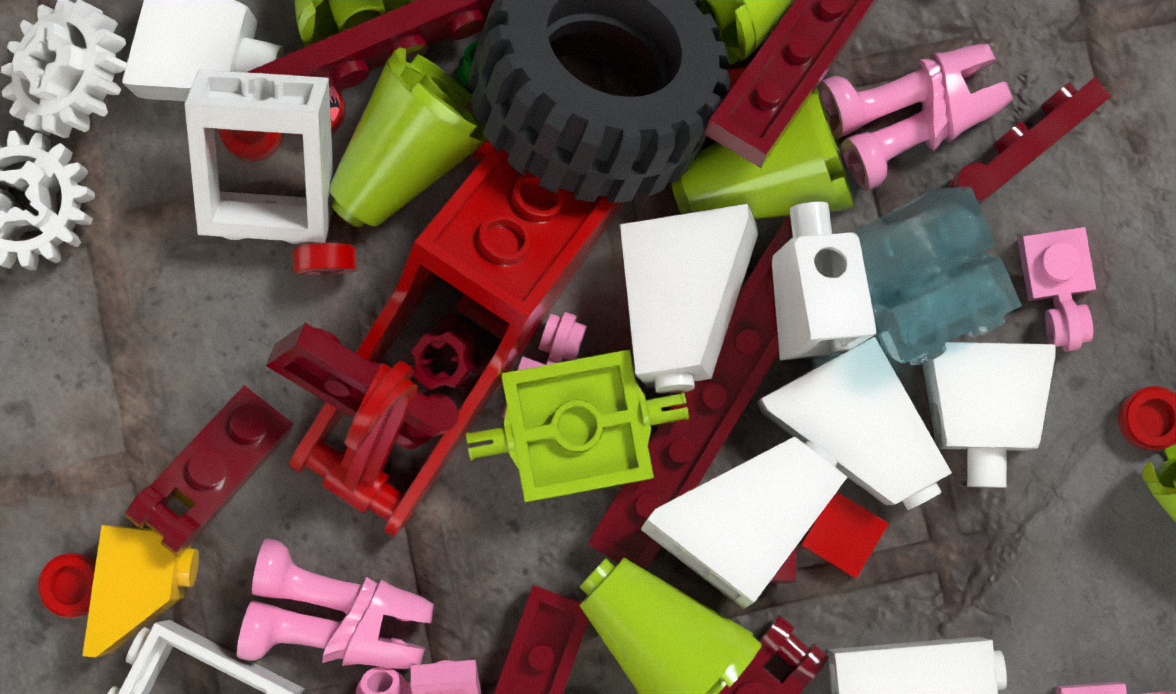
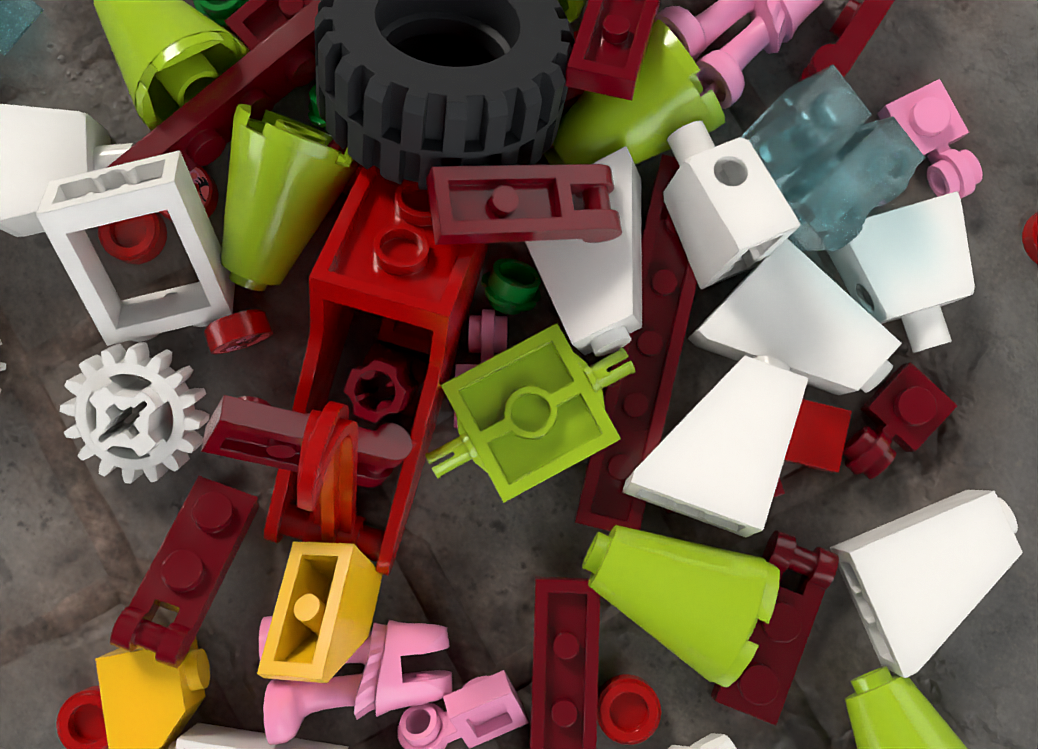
camera: 20 degrees left, 0 degrees up
(196, 284) = (110, 392): none -> white gear
(324, 546) = (320, 612): none -> yellow slope
(599, 298) = (511, 286): none -> green plate
(629, 232) = (521, 203): none -> dark red plate
(942, 539) = (905, 410): none -> dark red plate

